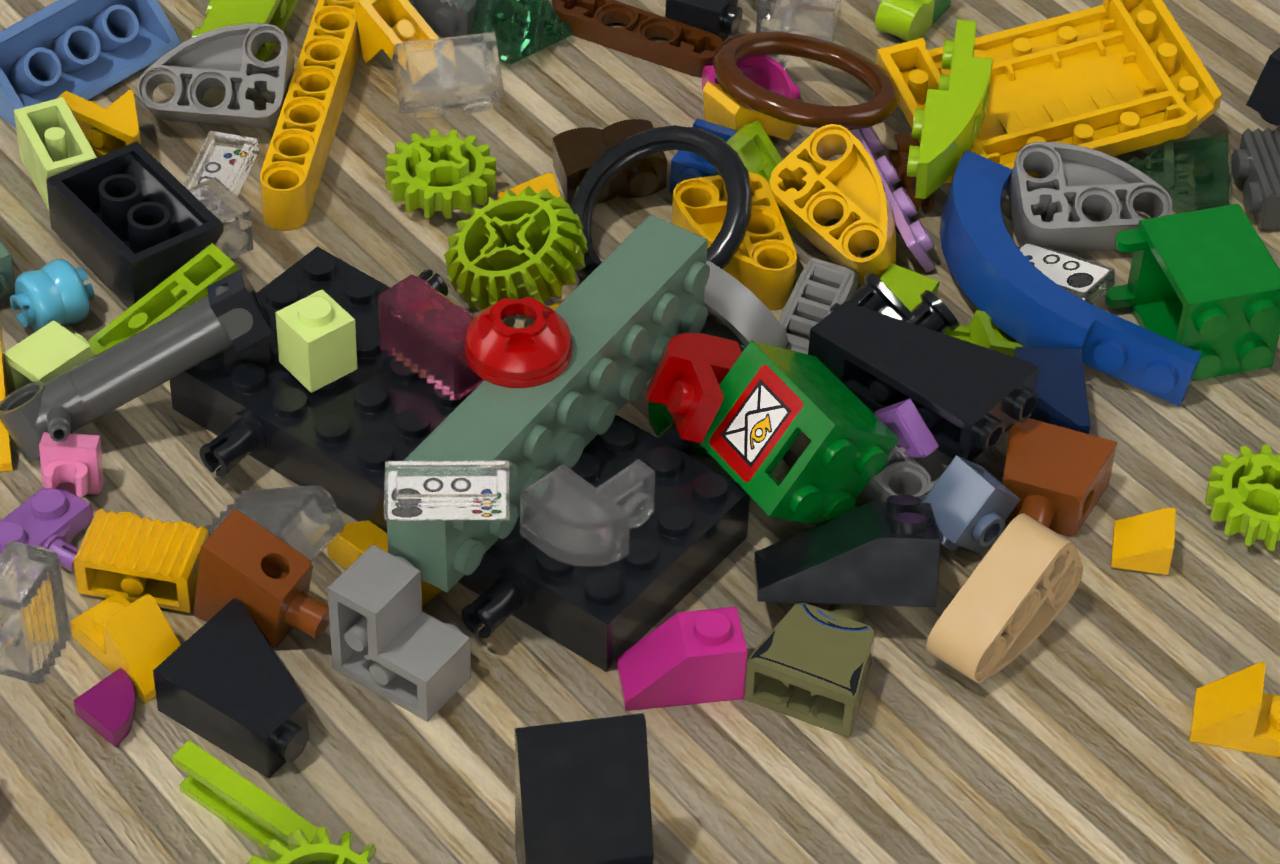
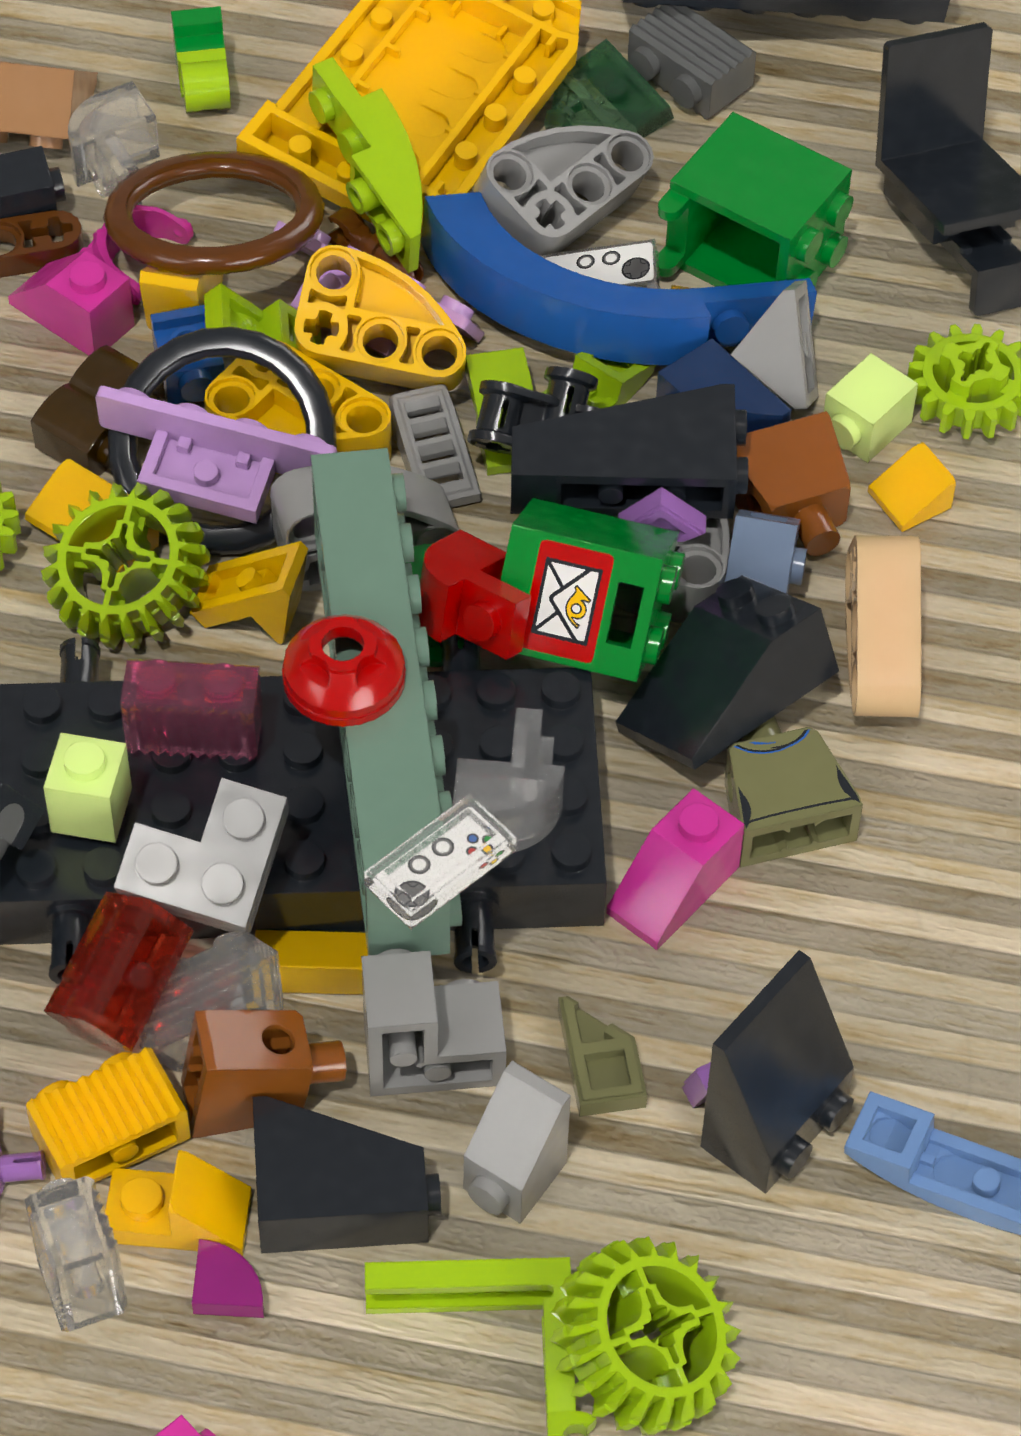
camera: 40 degrees left, 10 degrees up
(229, 467) = (119, 971): none -> clear red brick
(346, 438) = (211, 879): none -> brick
(370, 746) = (517, 1144): none -> light grey slope
(491, 753) = (601, 1062): none -> olive tile
(623, 196) = (204, 456): none -> lavender bracket
(670, 91) = (78, 301): none -> dark pink slope
(1130, 384) = (782, 348): none -> light grey slope
(1164, 467) = (870, 407): none -> yellowish green brick

